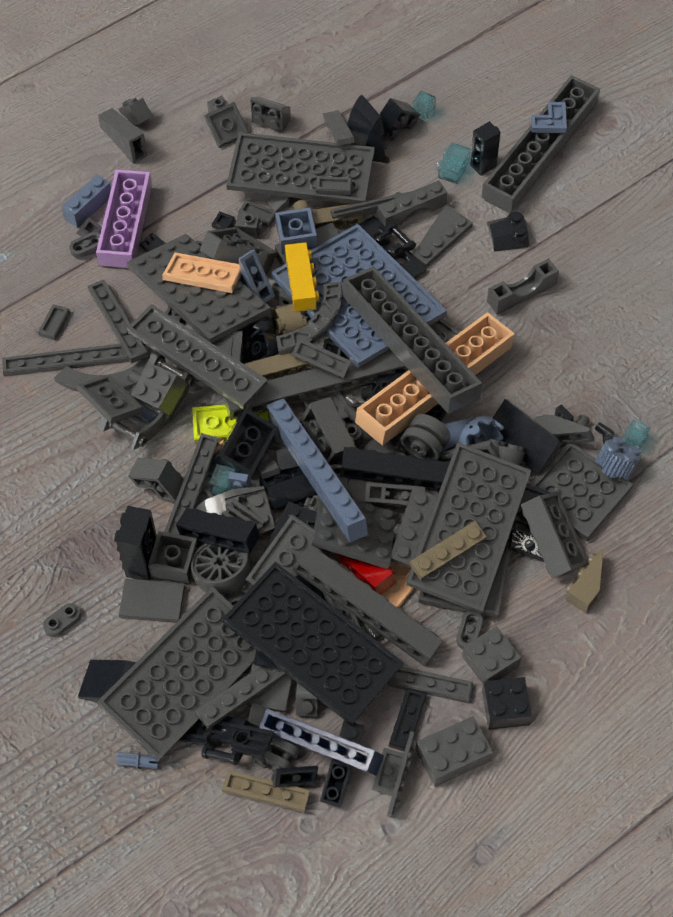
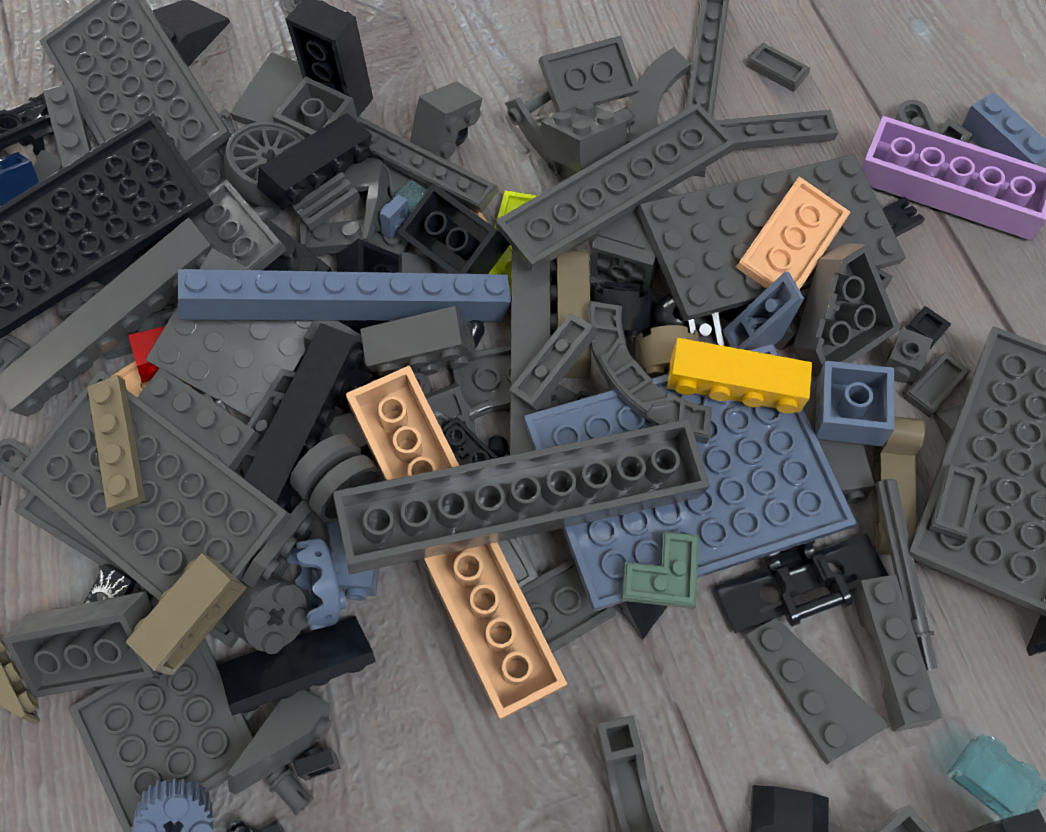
camera: 110 degrees right, 5 degrees up
(419, 282) = (671, 582): none -> sand green tile
(527, 468) = (185, 615): none -> dark tan brick

